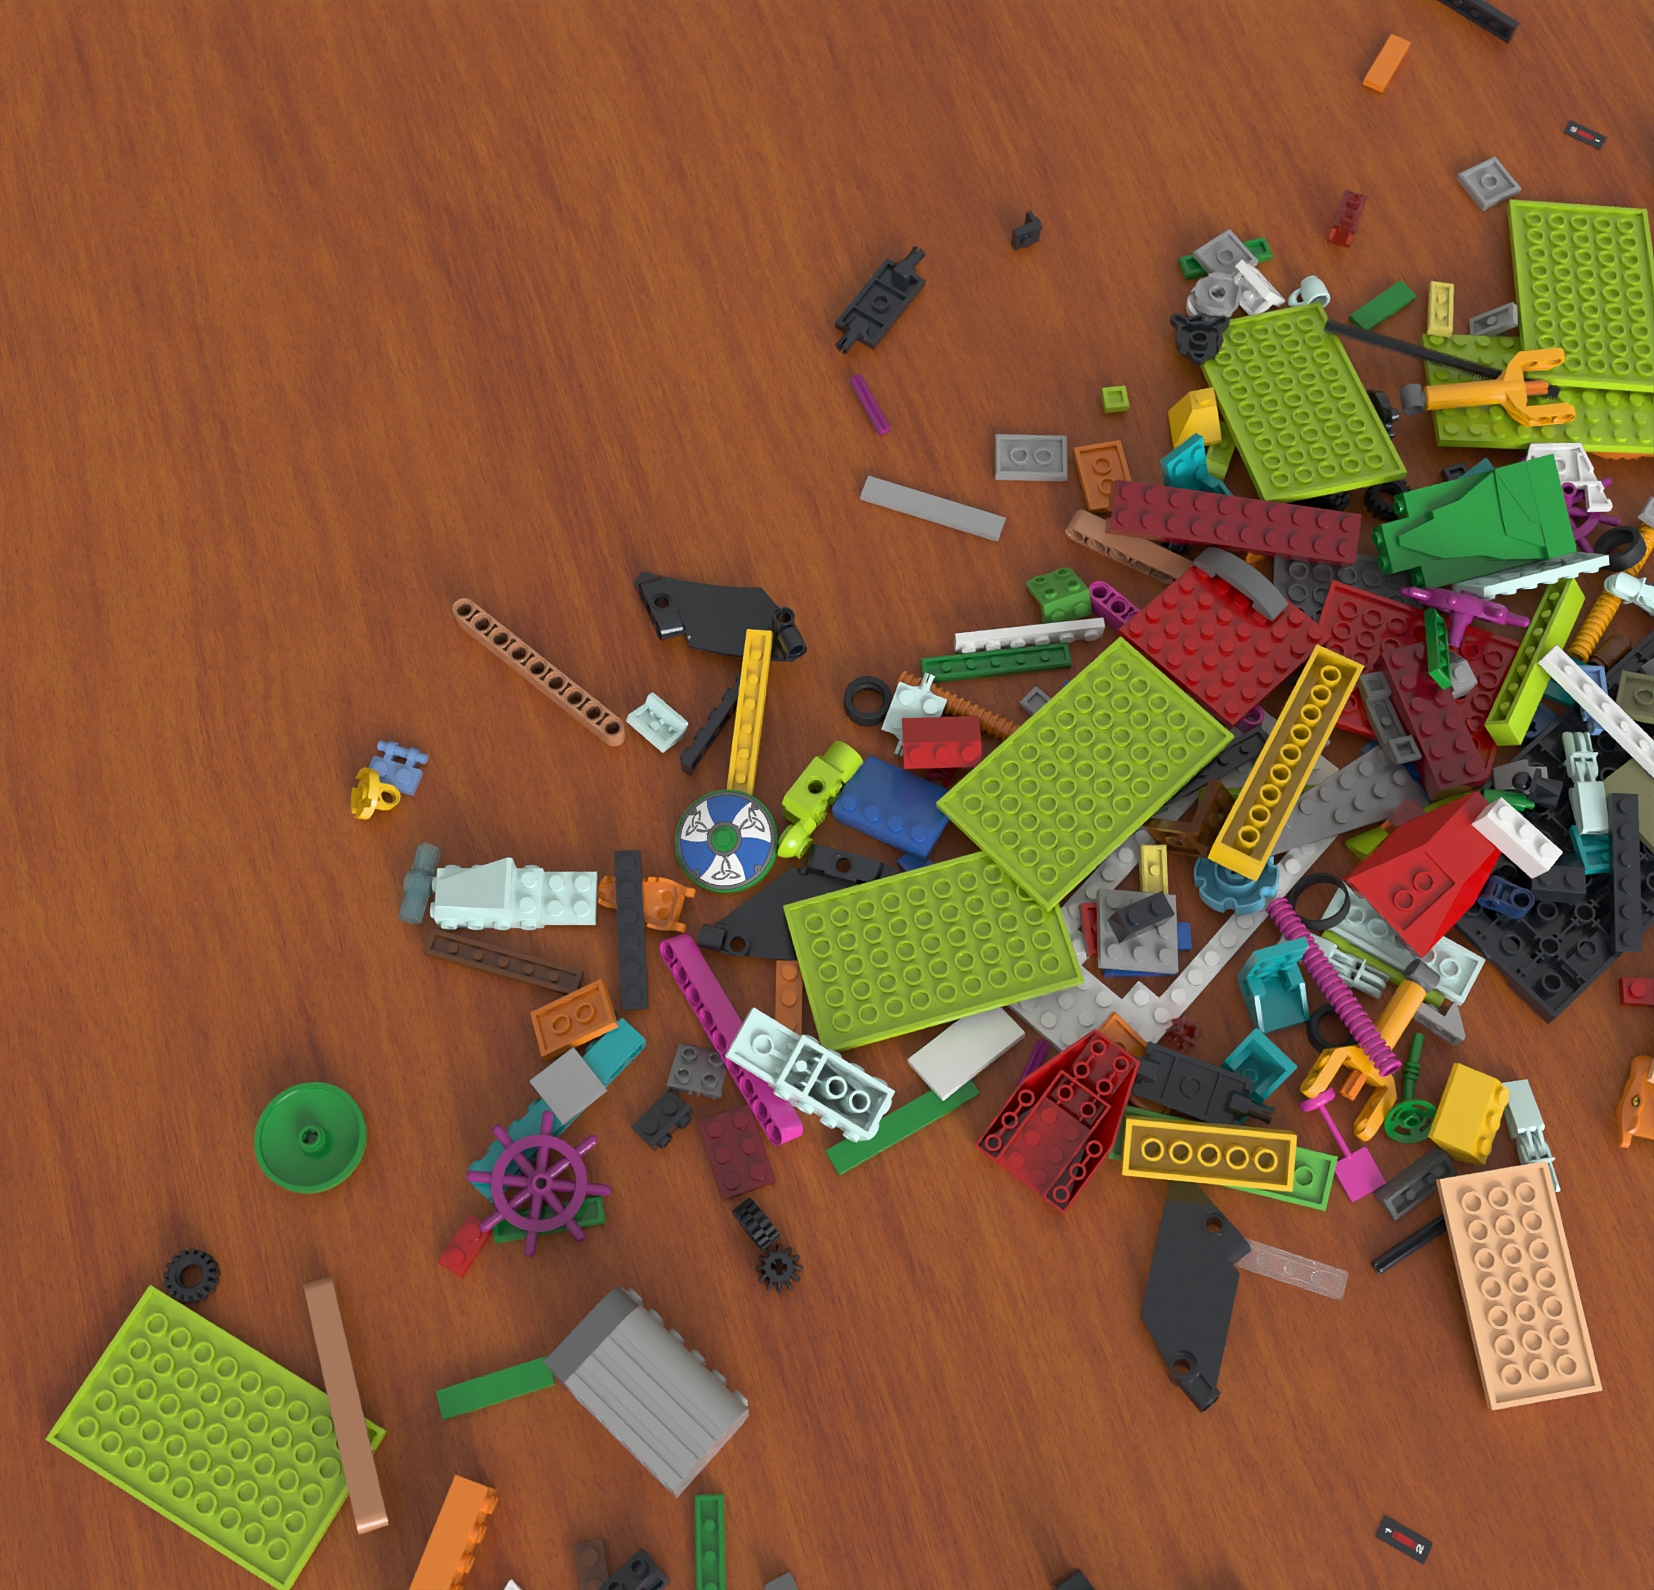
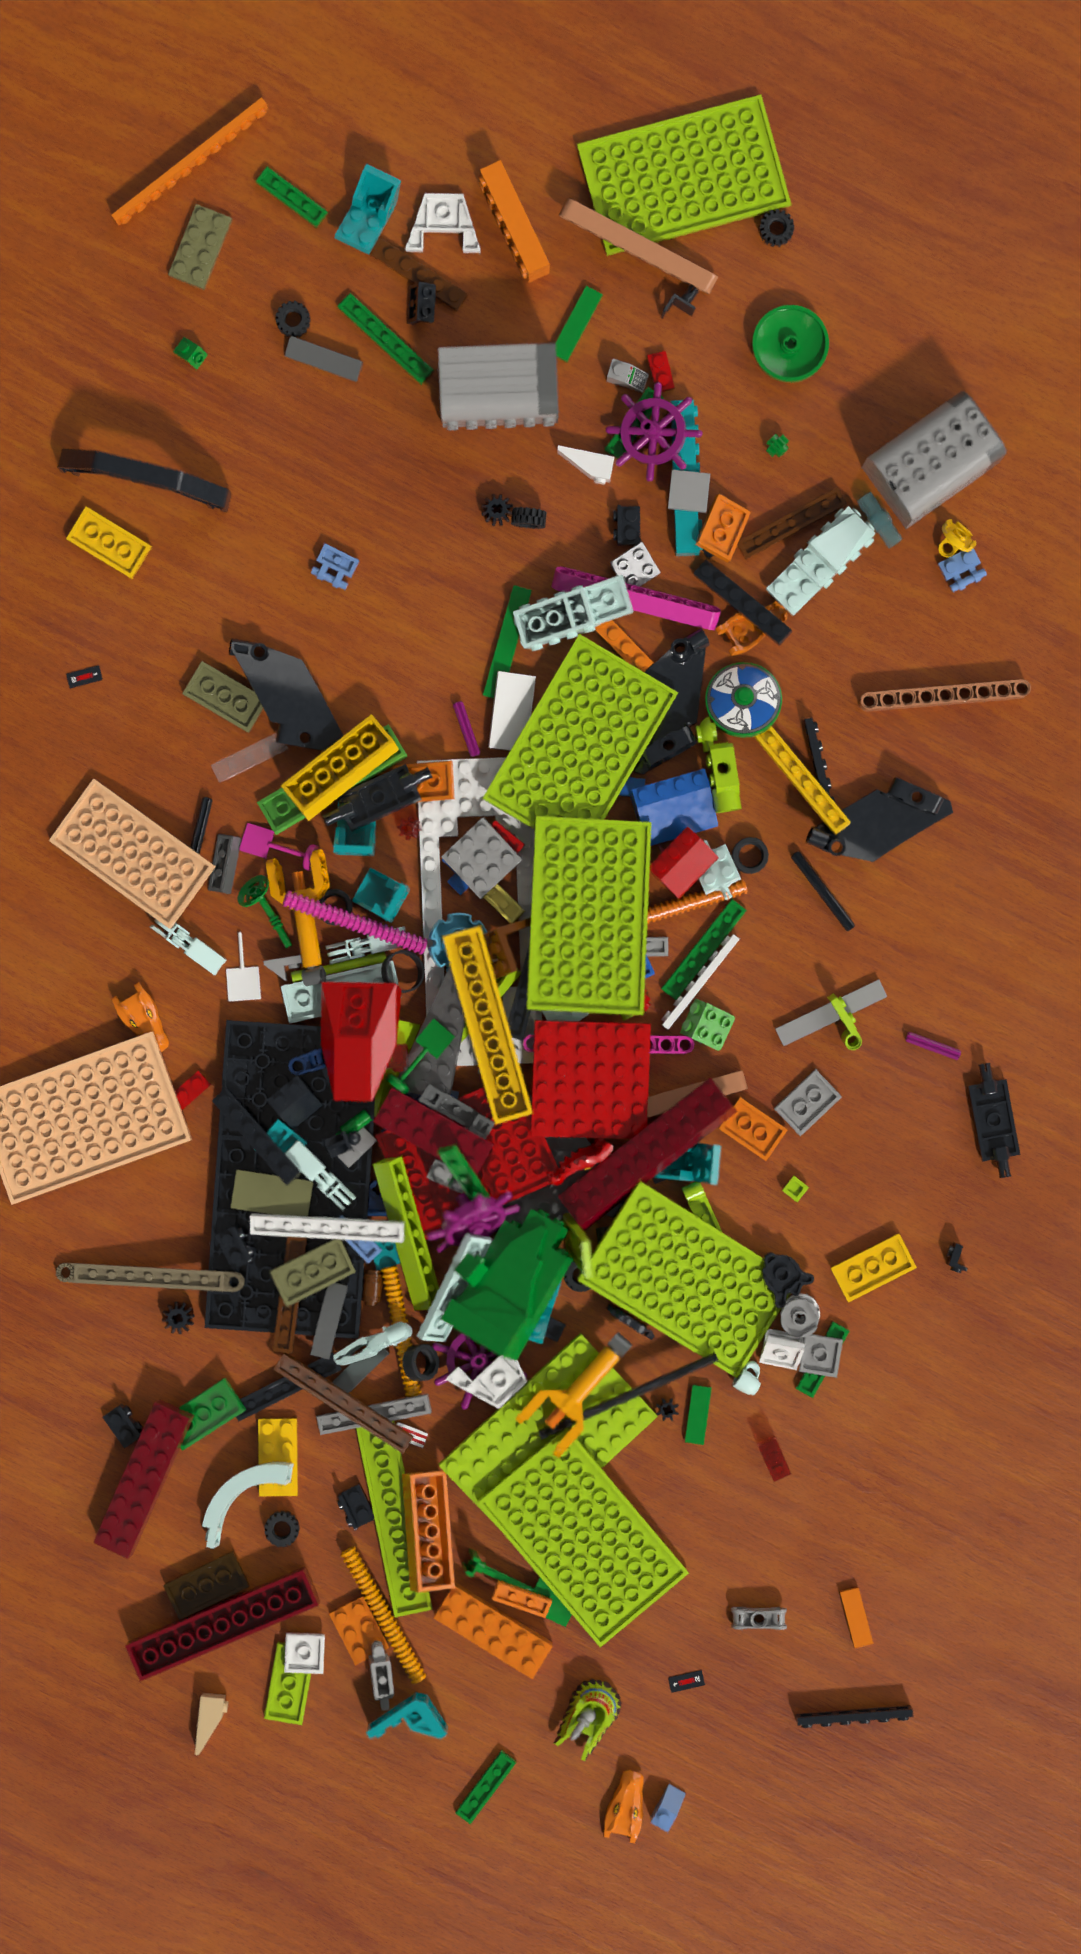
camera: 140 degrees right, 20 degrees up
(304, 879) = (935, 459): none -> light grey piece
(366, 1294) = (683, 302): none -> black bracket
(434, 1049) = (777, 445): none -> green gear
(504, 1276) = (627, 376): none -> light grey slope
(634, 1215) = (592, 464): none -> white slope
(658, 723) = (848, 729): light aqua bracket -> none
(736, 1152) = (575, 546): dark red plate -> none
(832, 612) = (823, 891): none -> black axle
(935, 473) = (848, 1020): none -> lime plate
(1002, 1385) = (338, 561): none -> medium blue plate
(1063, 1119) = (426, 716): red wedge -> none
(1108, 285) = (873, 1267): none -> yellow plate
(1141, 917) = (484, 860): black brick -> none
(1193, 415) = (733, 1215): yellow slope -> none
(1244, 578) = (609, 1120): dark grey slope -> none
(1263, 1360) = (224, 697): none -> olive plate
(1300, 575) = (581, 1160): none -> red animal
(1351, 804) = (434, 1040): none -> green piece
(1379, 498) = (577, 1245): none -> lime tile
(1409, 329) = (669, 1414): none -> black gear
(1440, 309) = (661, 1444): light yellow tile -> none
(1469, 1114) = (227, 921): yellow slope -> none
(1476, 123) = (769, 1621): none -> light grey piece
(1488, 183) = (713, 1578): light grey tile -> none
(1495, 322) = (621, 1462): light grey slope -> none
(1498, 1046) = (243, 982): none -> white piece
(1506, 565) = (471, 1269): none -> green brick
(1517, 838) = (327, 1088): white brick -> none

